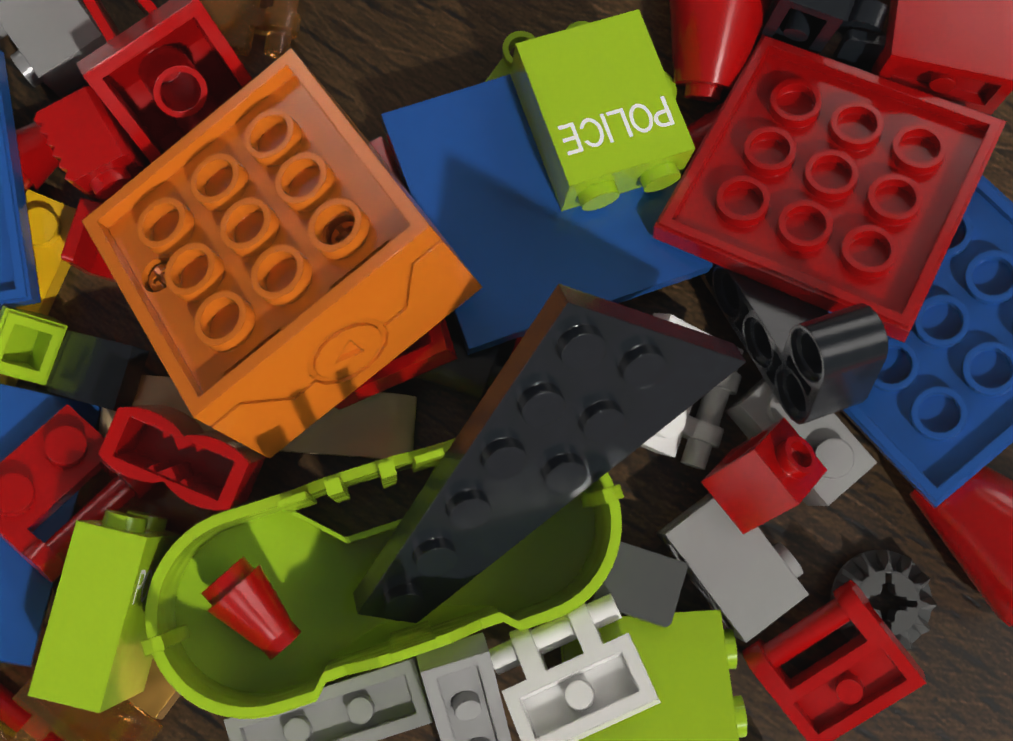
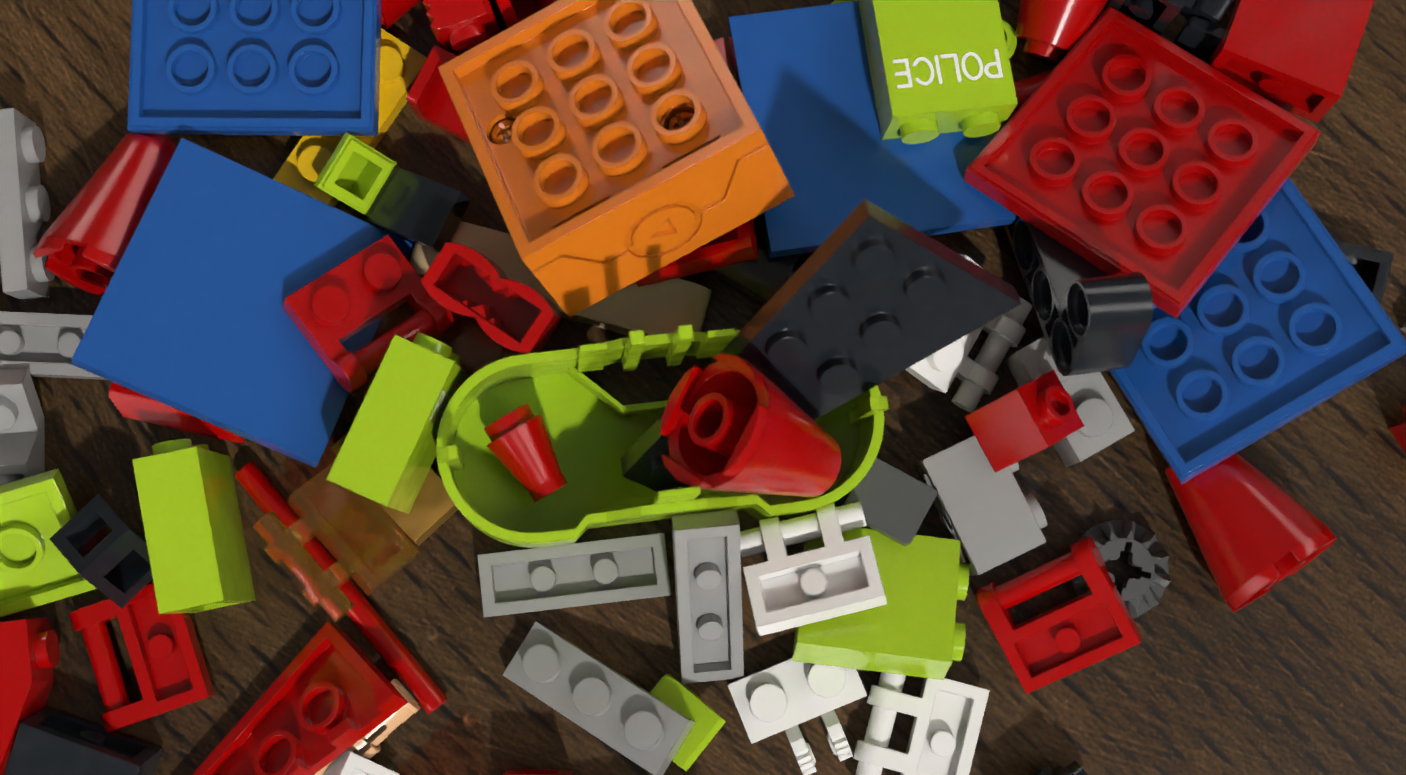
camera: 20 degrees right, 0 degrees up
(473, 563) = (744, 434): none -> red cone

